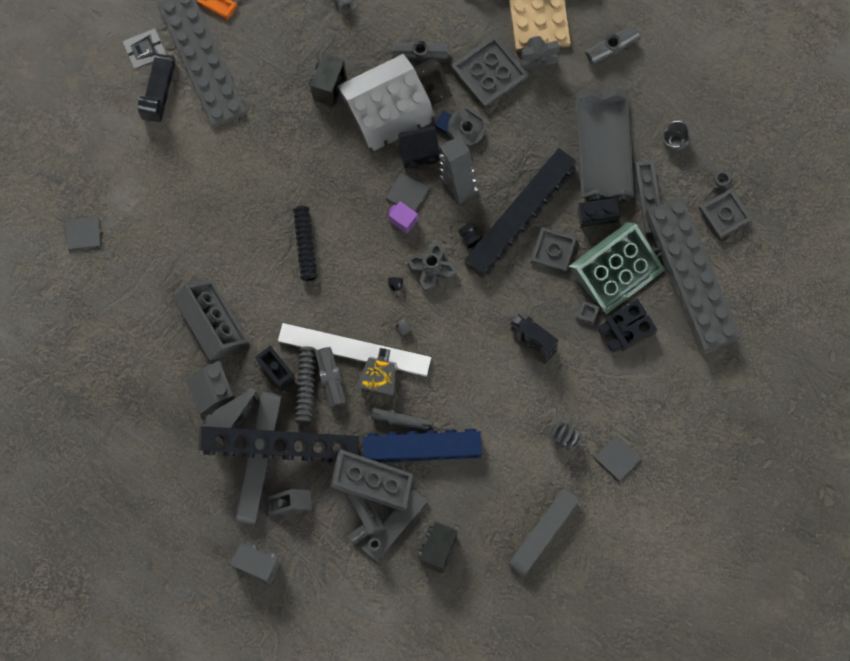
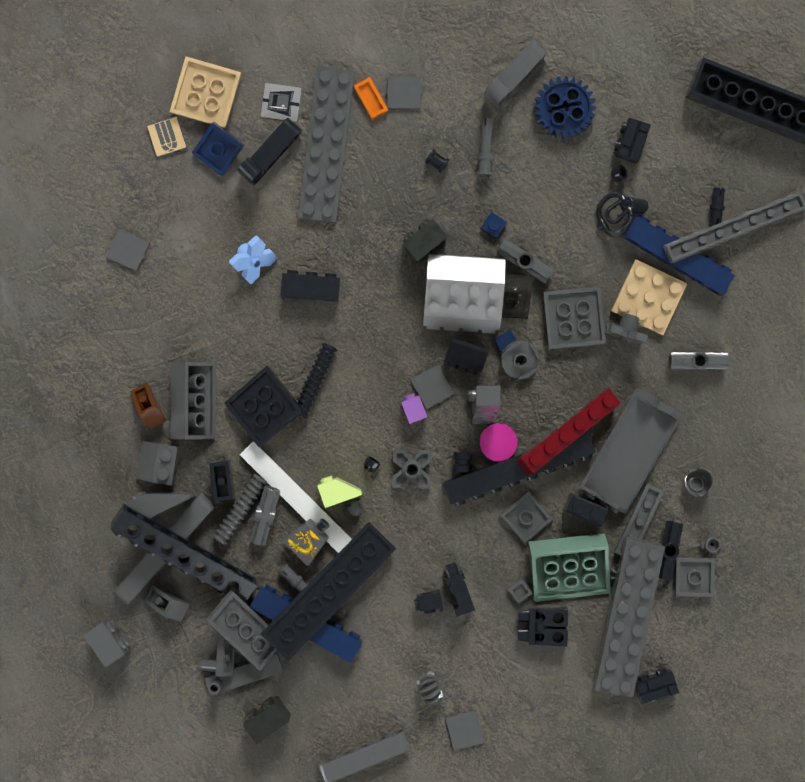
camera: 30 degrees right, 15 degrees up
(64, 127) = (166, 136): none -> piece
(77, 74) = (205, 92): none -> tan plate
(113, 110) = (218, 148): none -> dark blue tile
(175, 347) = (147, 406): none -> reddish brown slope
(193, 175) = (251, 257): none -> light blue plant
(255, 171) = (310, 286): none -> black brick
(274, 287) = (263, 406): none -> black plate
(300, 17) = (437, 161): none -> black bush
(377, 41) = (493, 225): none -> dark blue plate
(379, 317) = (336, 491): none -> yellowish green slope
(423, 404) = (328, 591): none -> black plate
(490, 203) = (498, 442): none -> dark pink tile
(517, 365) = (429, 602): none -> black brick
(541, 156) = (568, 432): none -> dark red arch
(683, 189) = (672, 537): none -> black piece
(755, 319) = (656, 686): none -> black brick

